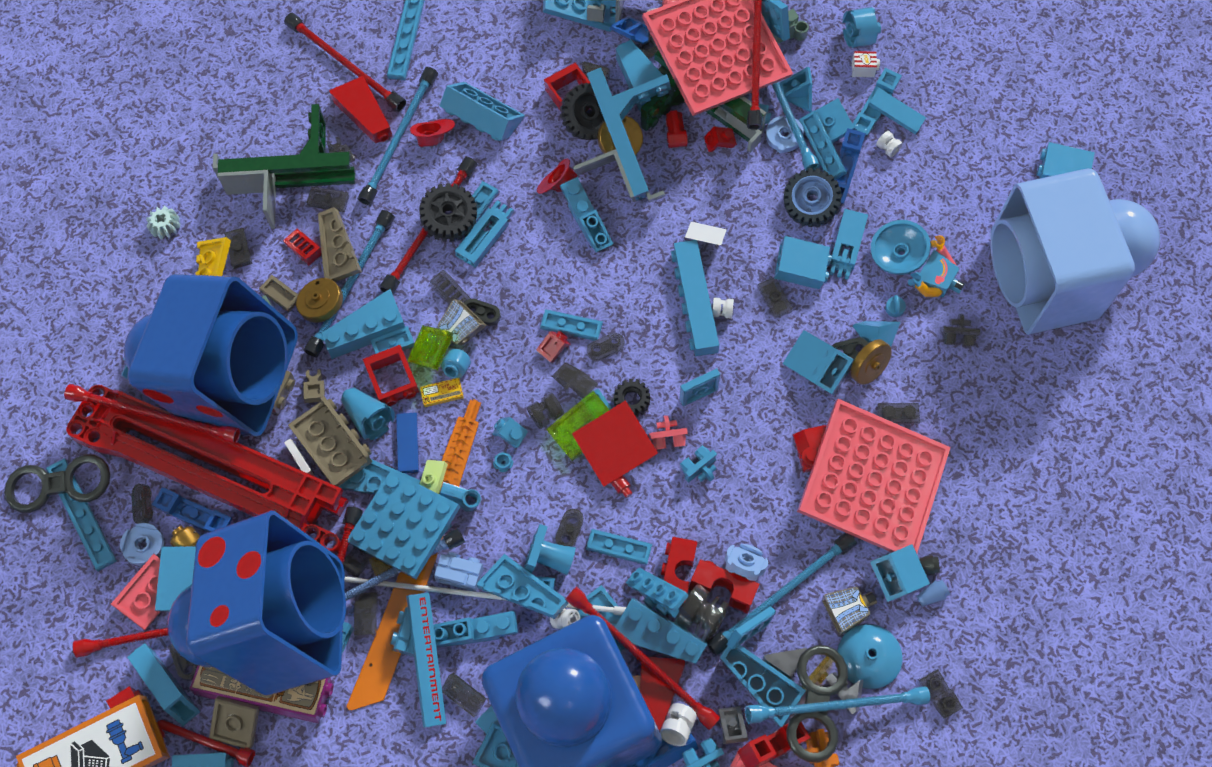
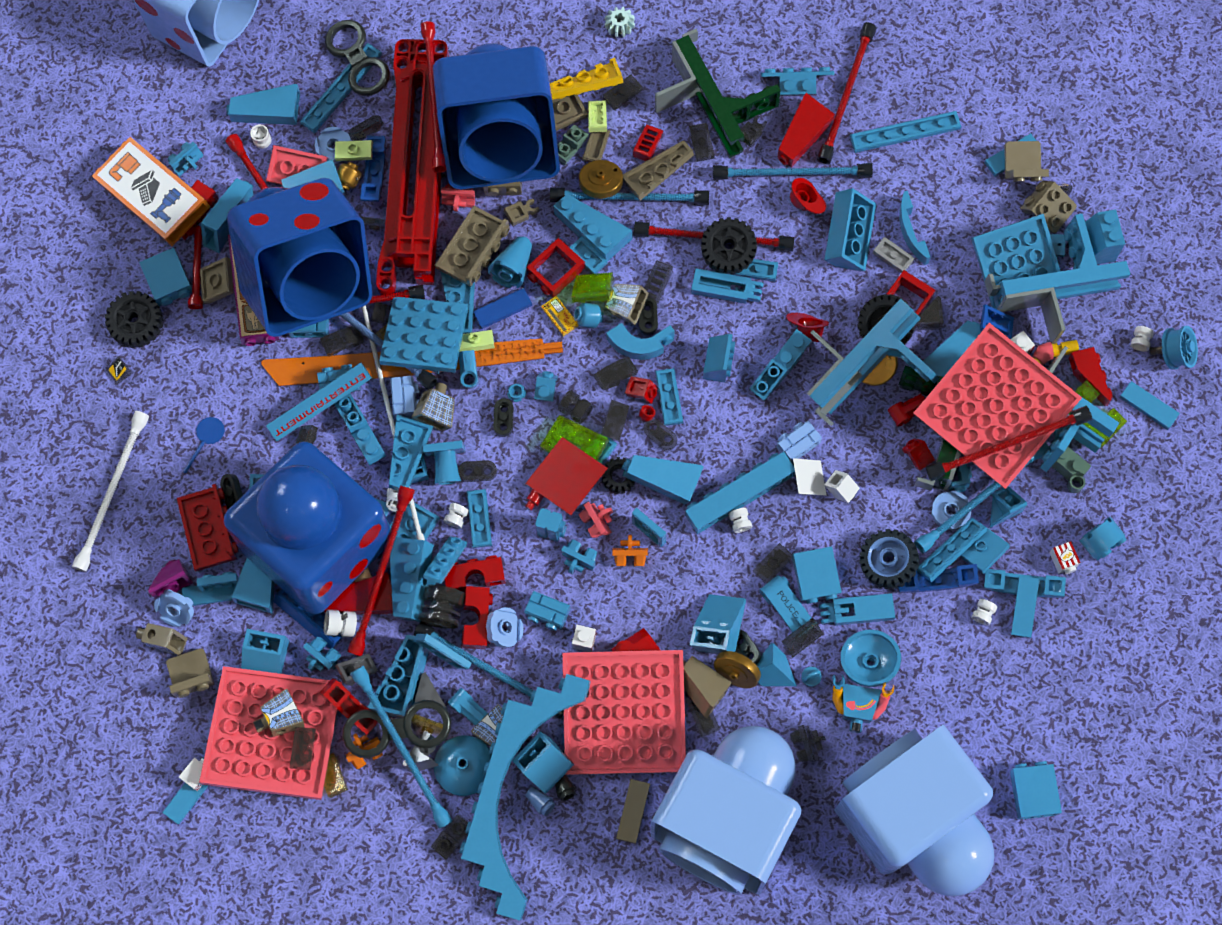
camera: 70 degrees right, 5 degrees up
(60, 597) = (267, 106): none -> dark azure slope
(73, 705) = (185, 159): none -> dark azure hips
(87, 613) = (260, 136): none -> white wheel
(162, 523) = (353, 150): none -> yellowish green plate
(253, 278) = (597, 116): none -> yellowish green plate
(268, 439) = (457, 197): none -> coral hips
(298, 457) = (451, 229): white tile -> none
(313, 92) = (797, 82): none -> dark azure bracket
(487, 543) = (435, 408): none -> dark tan torso
(505, 64) = (920, 248): none -> dark azure slope
(505, 338) = (636, 347): none -> dark azure arch
(522, 85) = (893, 255): none -> light grey plate
(525, 482) = (503, 418): none -> pearl dark grey plate
(526, 362) = (615, 372): none -> clear smoke slope
(555, 263) = (719, 358): none -> dark azure slope
(580, 349) = (644, 411): none -> red hinge
(608, 567) = (456, 515): none -> white wheel
(655, 353) = (664, 476): none -> dark azure slope
(659, 476) = (550, 525): none -> dark azure brick
(667, 229) = (799, 441): none -> light blue brick
(718, 410) = (638, 553): none -> orange hips
(727, 209) = (842, 486): none -> white brick
(743, 515) = (547, 611): none -> dark azure brick
(785, 490) = (584, 638): none -> white brick
(809, 301) = (785, 602): none -> dark azure door
(810, 630) = (464, 704): none -> dark azure piece
(857, 298) = (802, 637): none -> clear smoke plate
(877, 396) = (704, 685): none -> dark tan slope
(957, 660) = (483, 838): none -> dark azure arch
(971, 511) = (633, 811): none -> dark tan tile
(1021, 409) = (730, 810): none -> light blue piece

